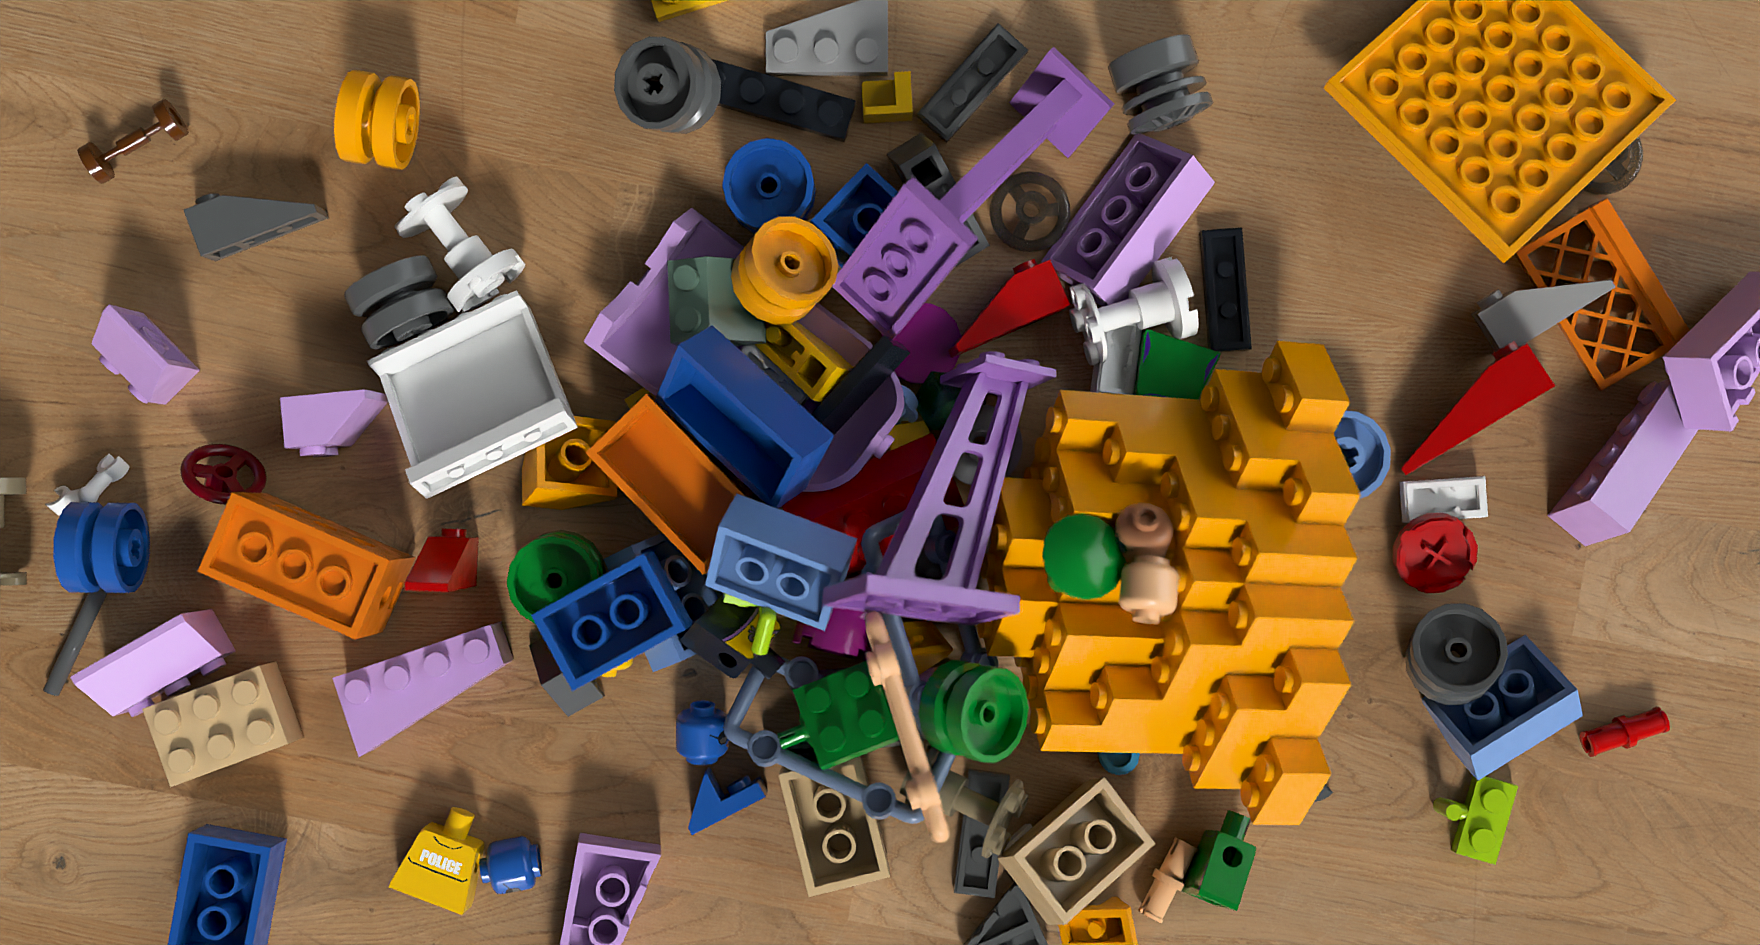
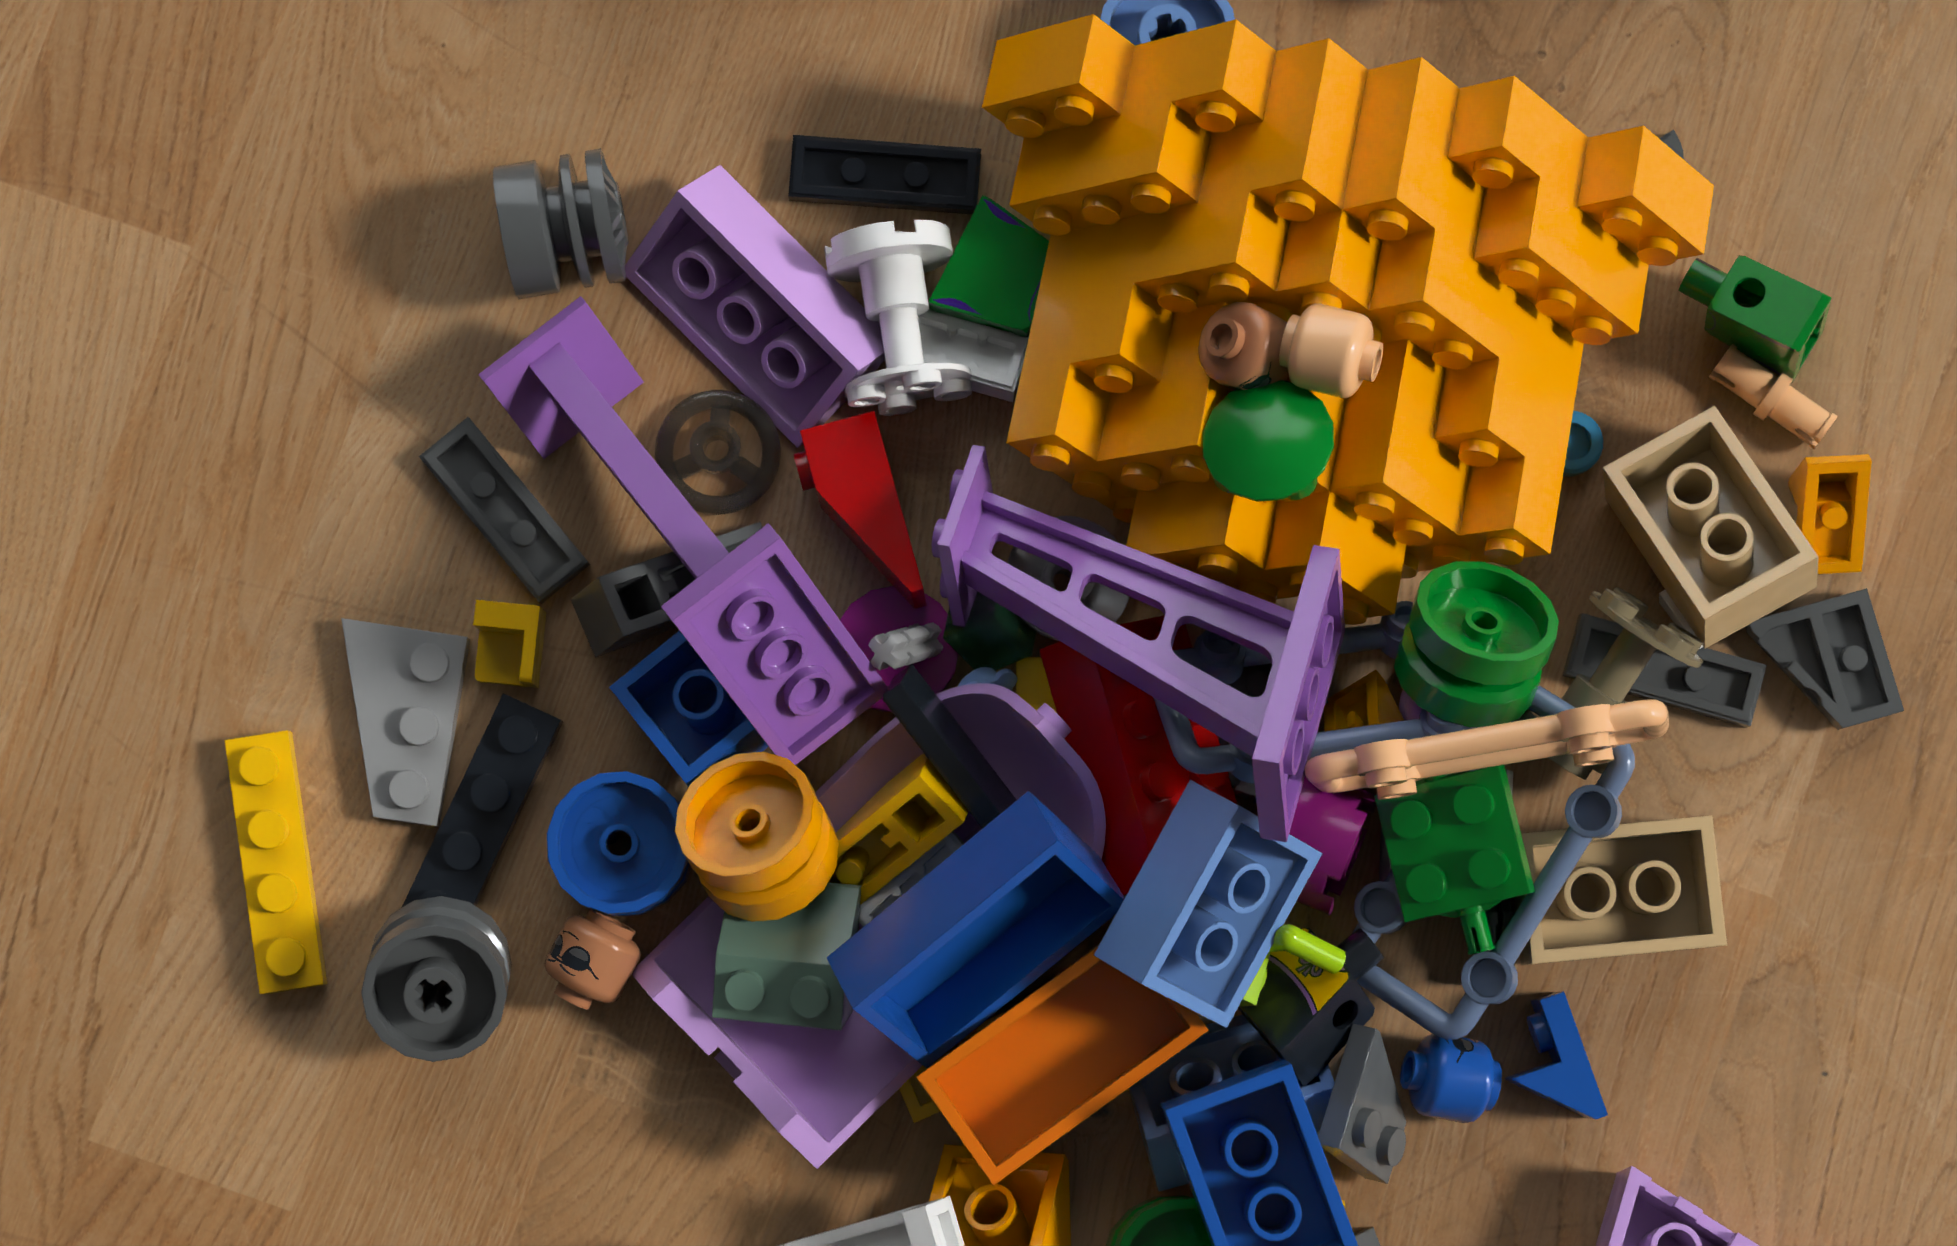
camera: 85 degrees left, 5 degrees down
(672, 681) = (1364, 1110): none -> dark grey wing
(695, 182) = (592, 959): none -> nougat head
(920, 346) = (905, 646): none -> light grey axle

